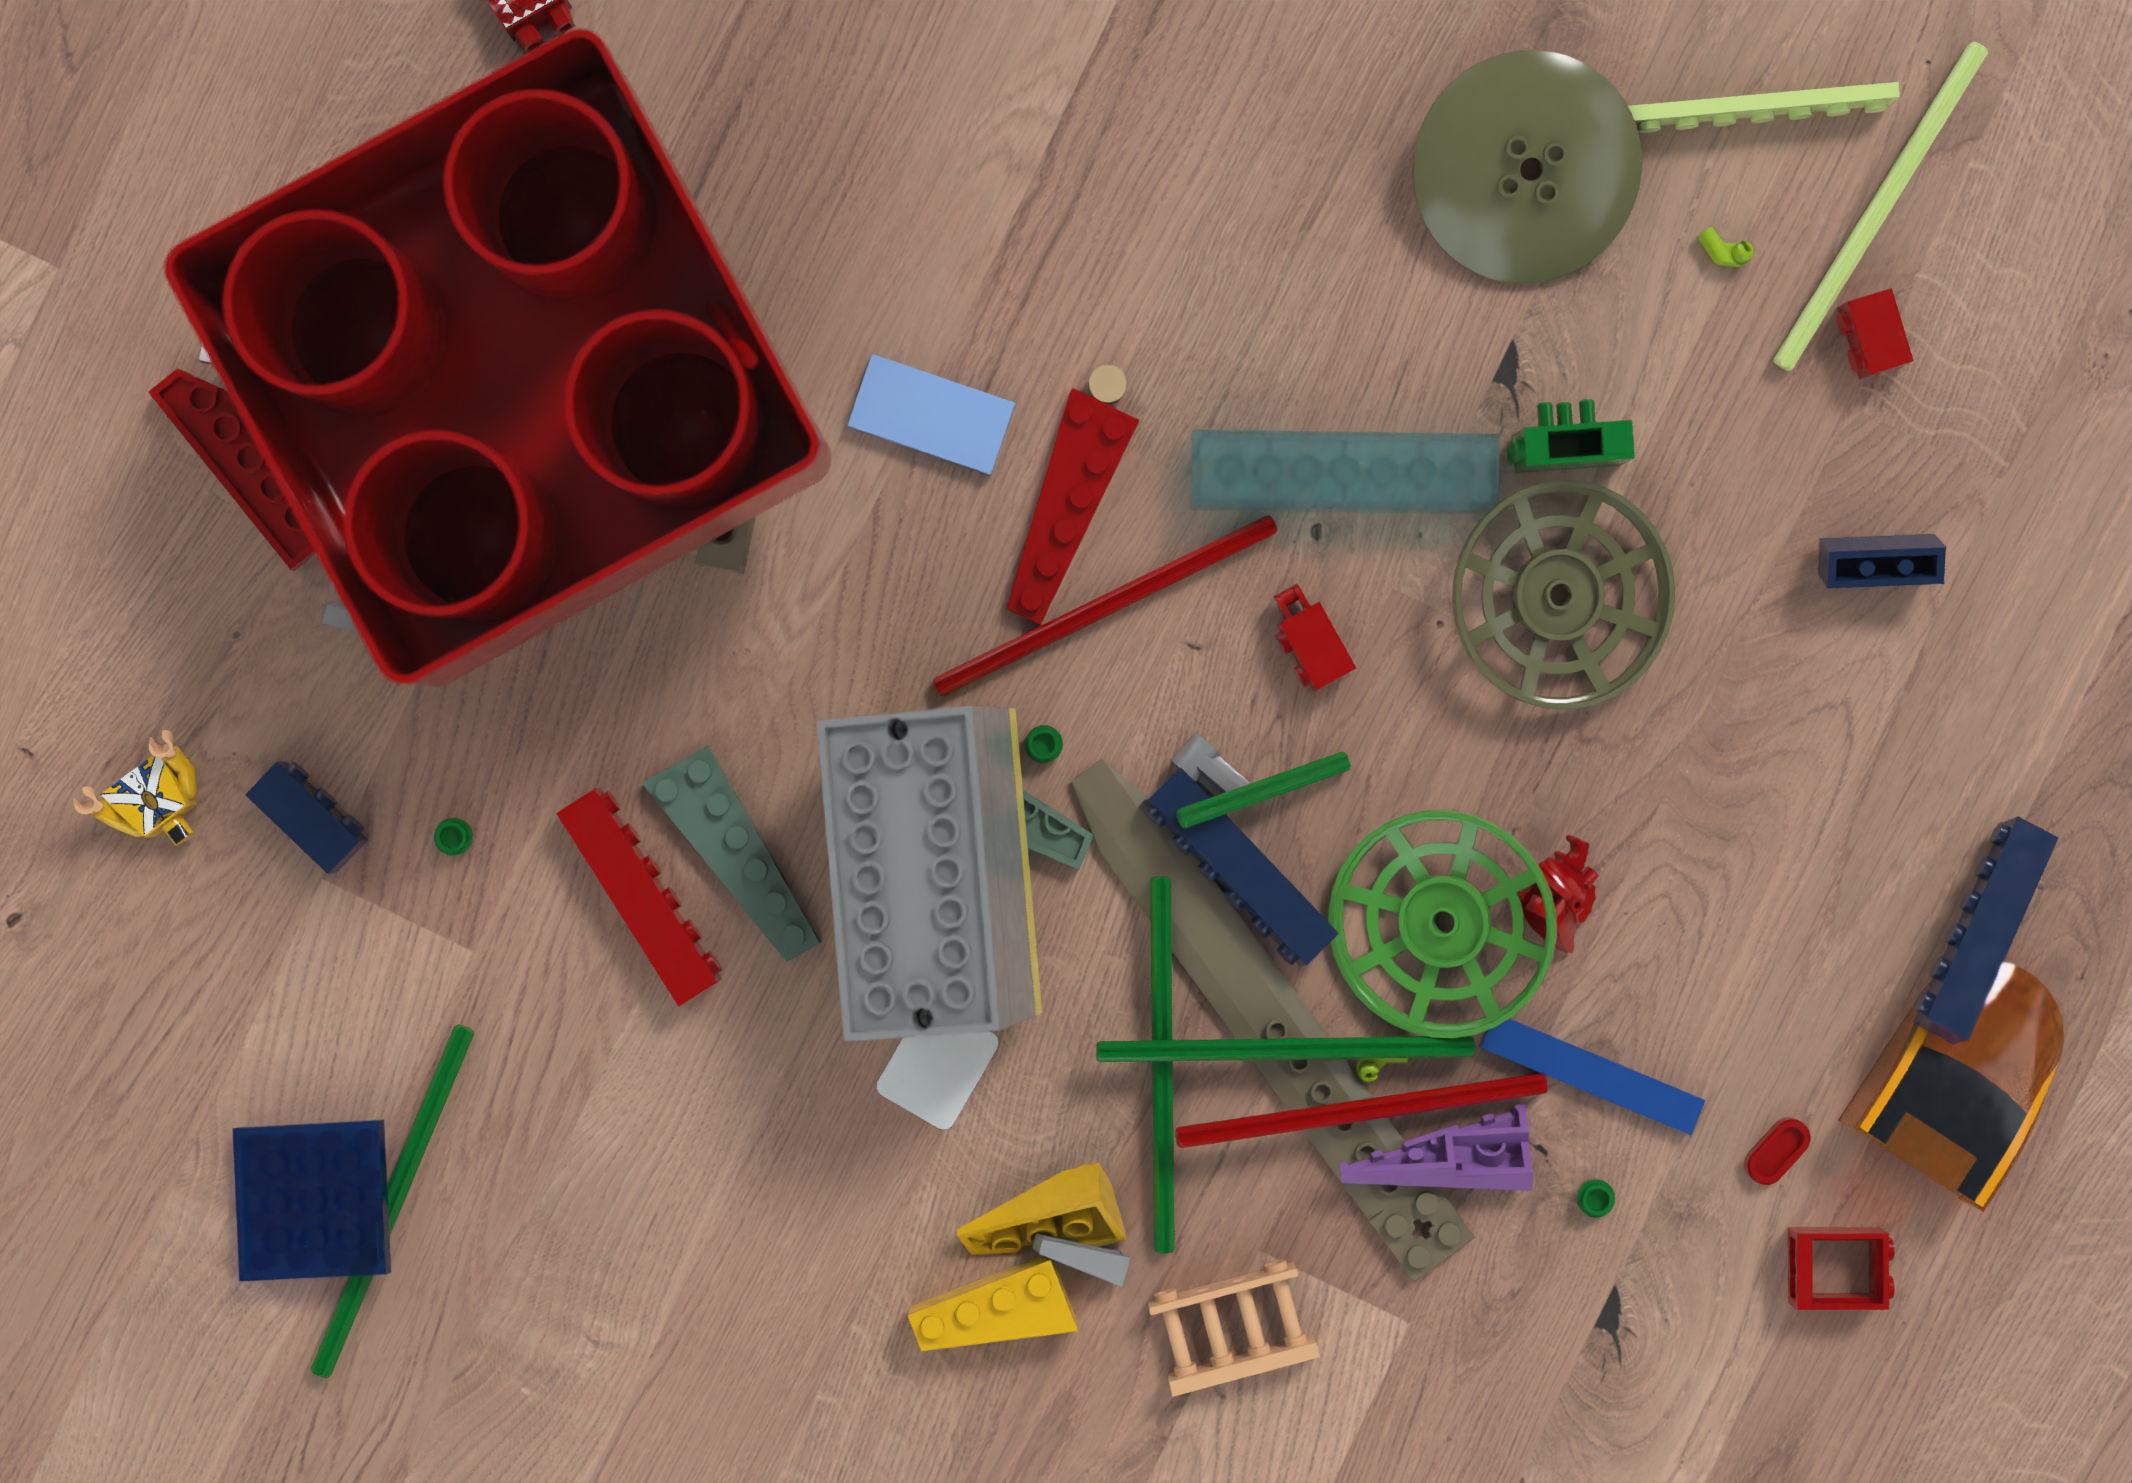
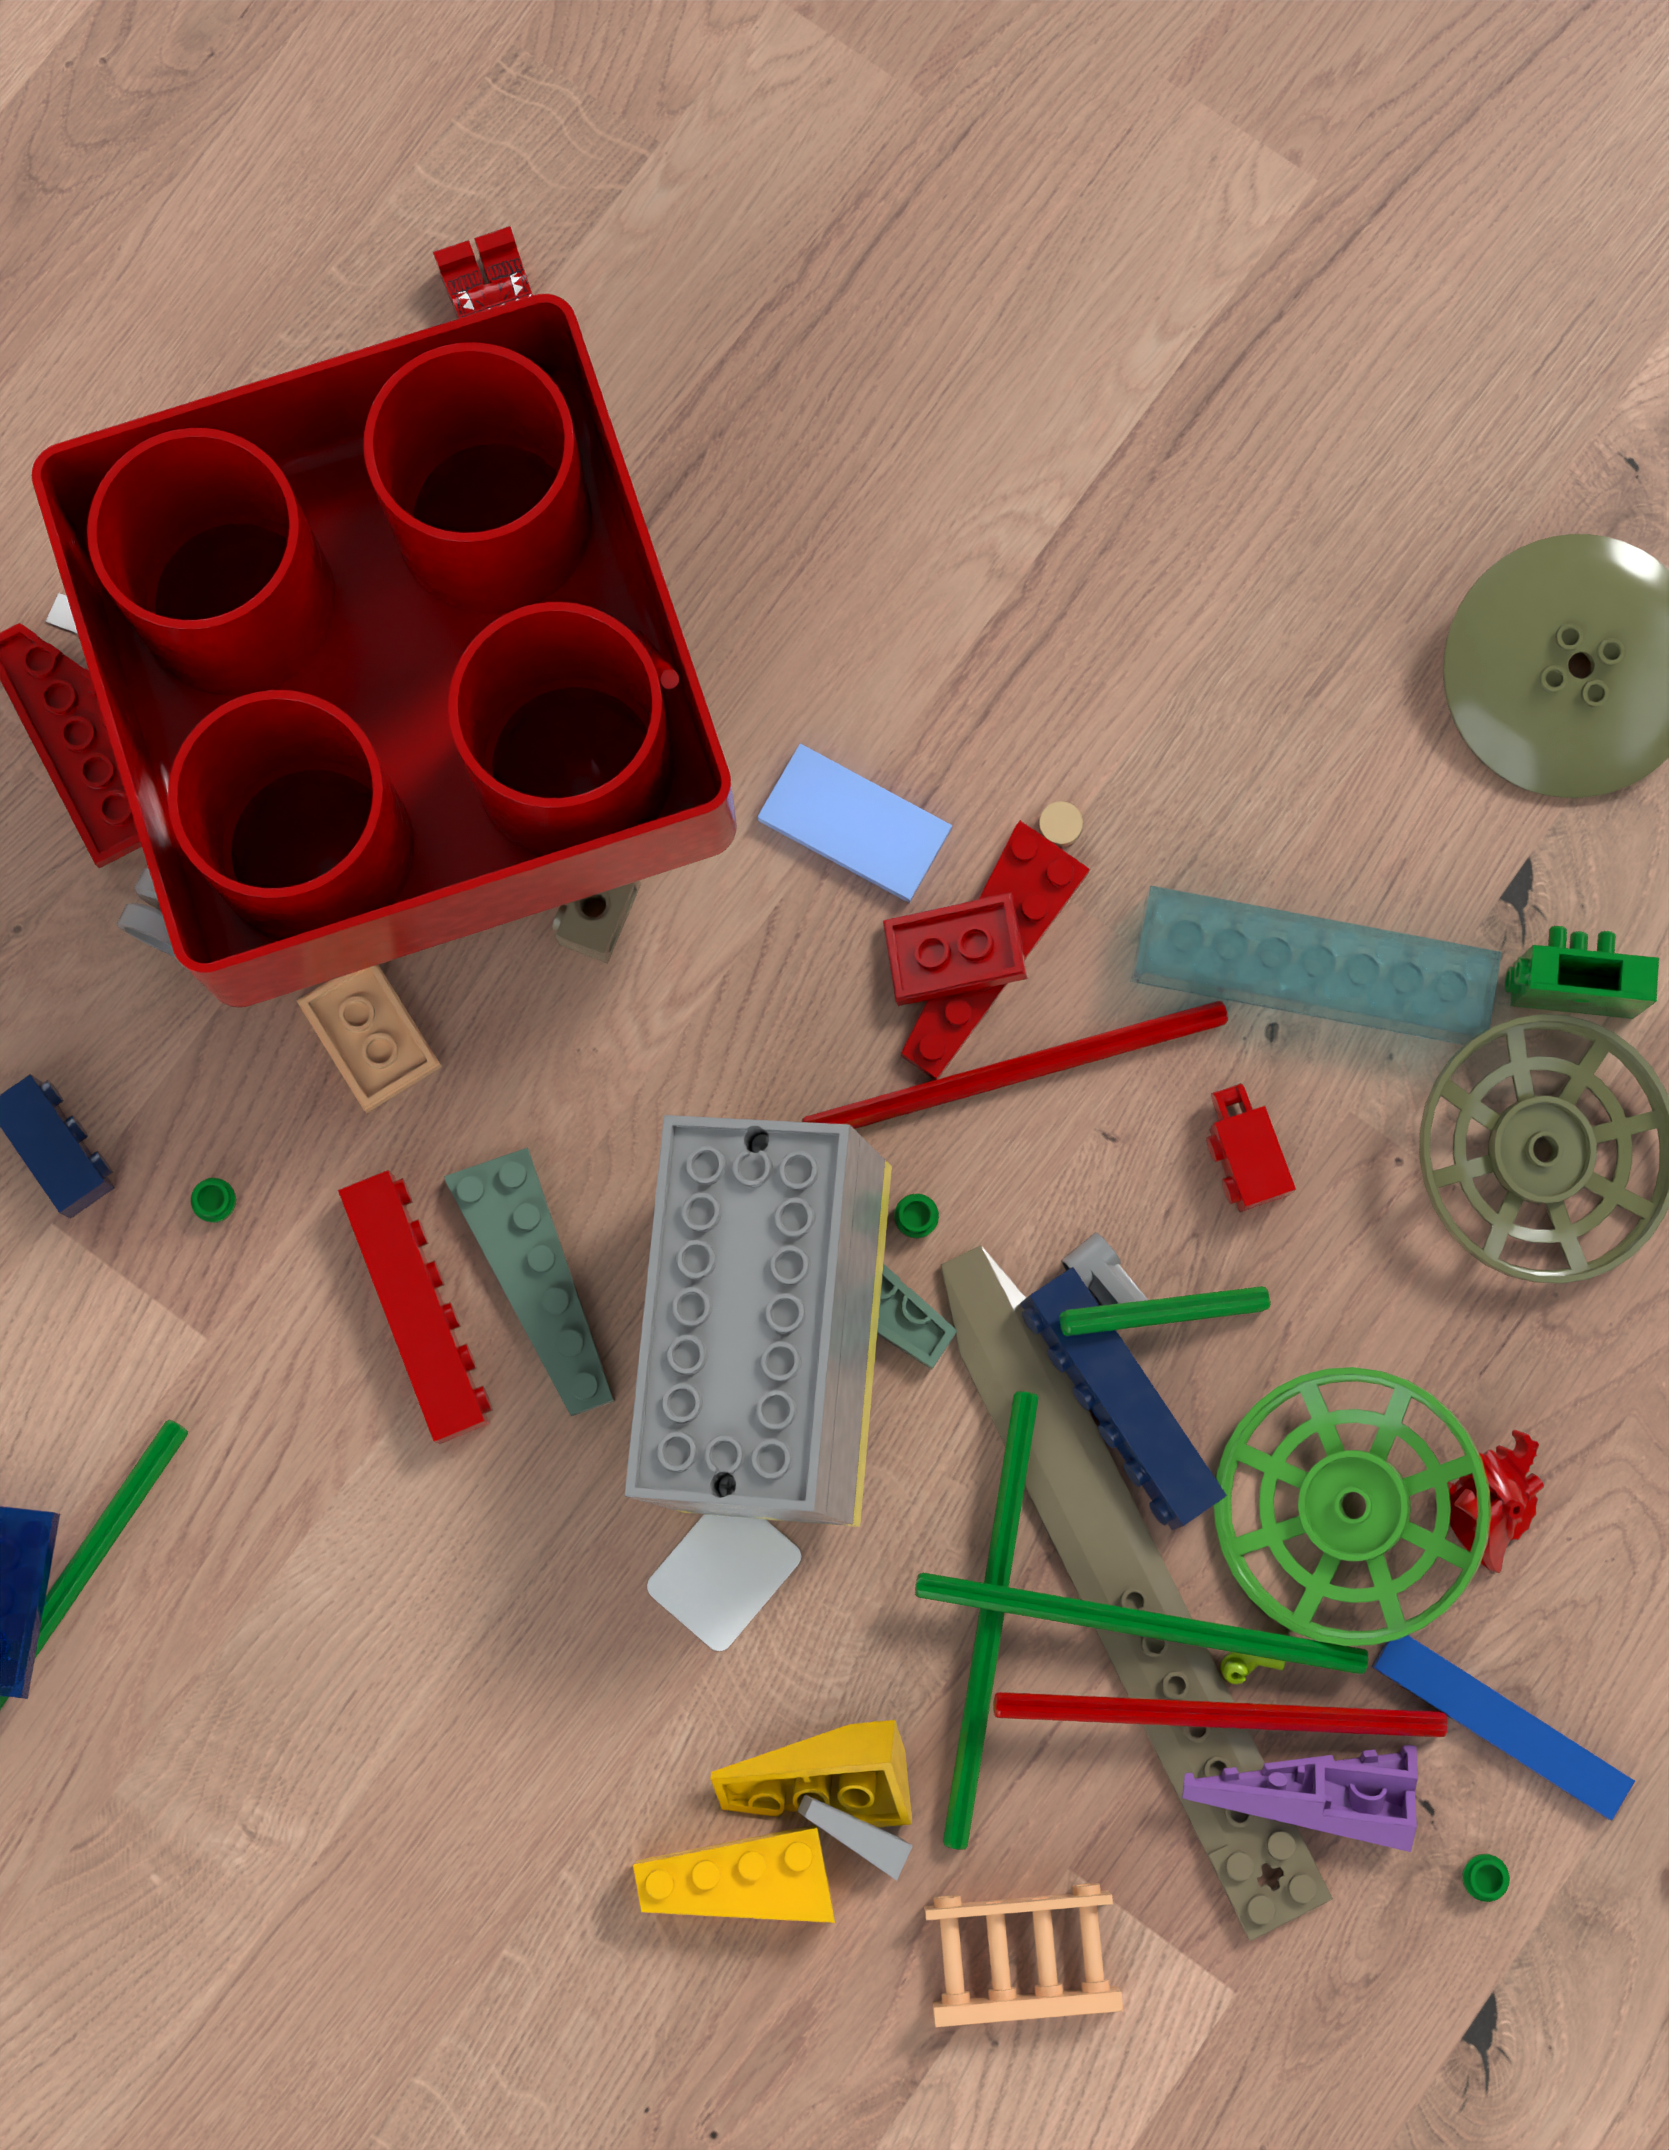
camera: 10 degrees right, 10 degrees down
(558, 678) = (369, 1035): none -> light nougat tile
(1036, 512) = (954, 949): none -> red tile

